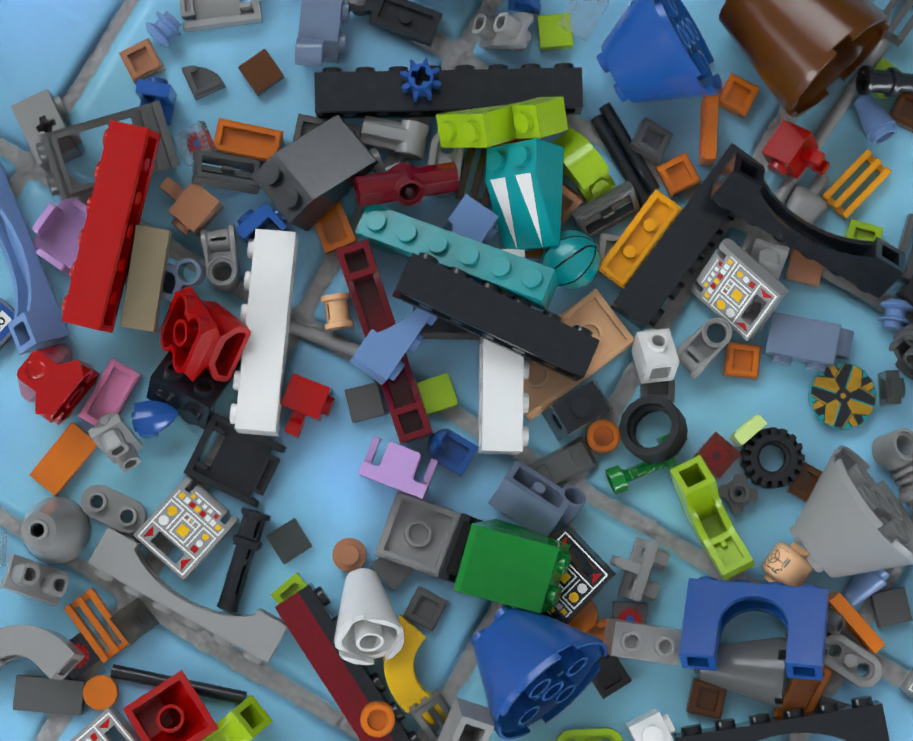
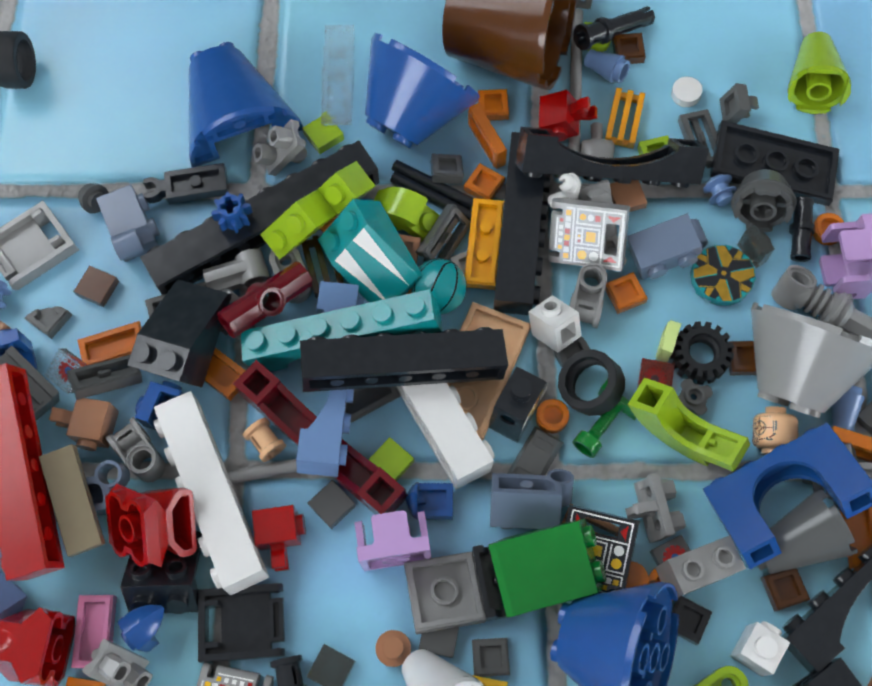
camera: 25 degrees left, 15 degrees down
(746, 238) = (570, 188): none -> white arm

